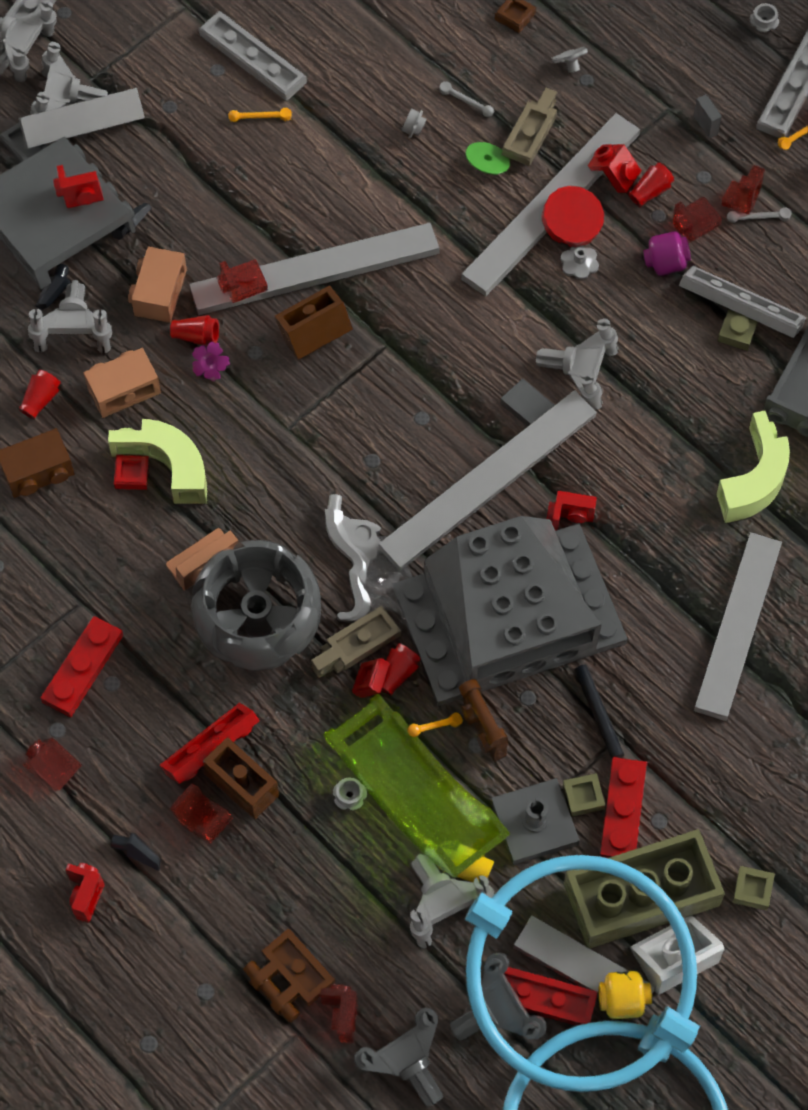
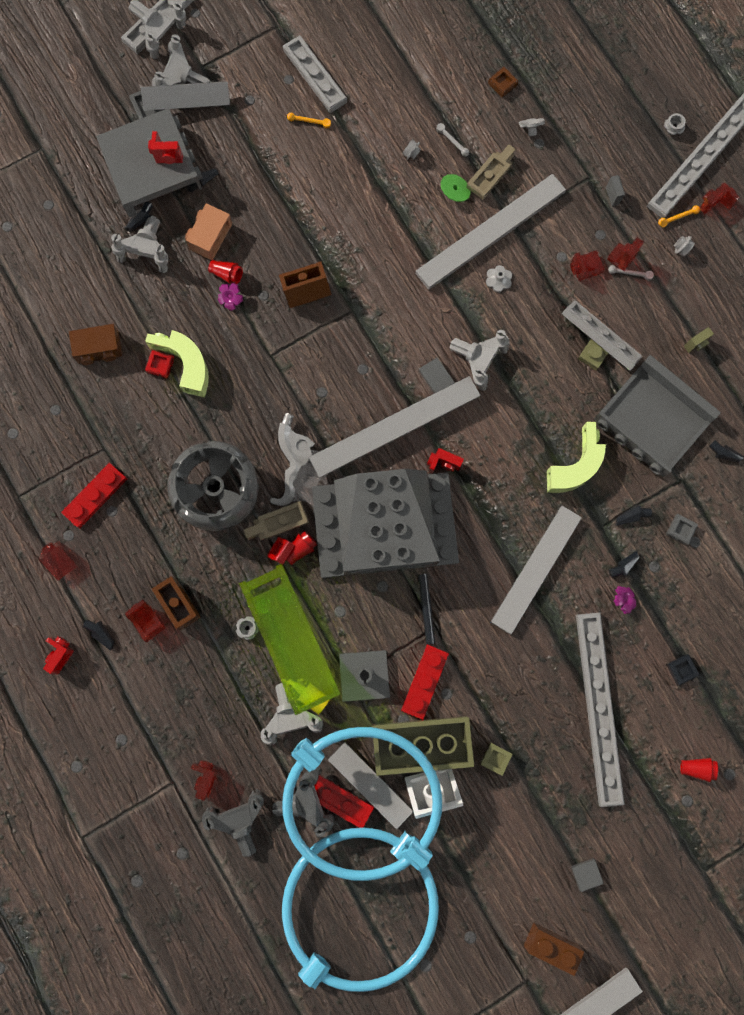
camera: 10 degrees right, 15 degrees up
(39, 393) = (111, 292): red cone -> none
(122, 382) = (167, 298): nougat brick -> none
(189, 563) = (189, 436): nougat bracket -> none
(189, 759) = (172, 566): red plate -> none
(242, 280) = (264, 242): clear red bracket -> none
(296, 967) = (183, 742): reddish brown plate -> none
(326, 266) = (317, 243): light grey tile -> none
(454, 720) = (330, 591): light orange hinge -> none
(490, 736) = (344, 594): reddish brown plate -> none
(572, 216) = (502, 245): red tile -> none
(583, 795) = (400, 666): olive plate -> none
(617, 165) = (542, 214): red bracket -> none
(624, 995) = (389, 816): yellow head -> none
(653, 183) = (563, 233): red cone -> none
(667, 253) = (560, 287): magenta head -> none

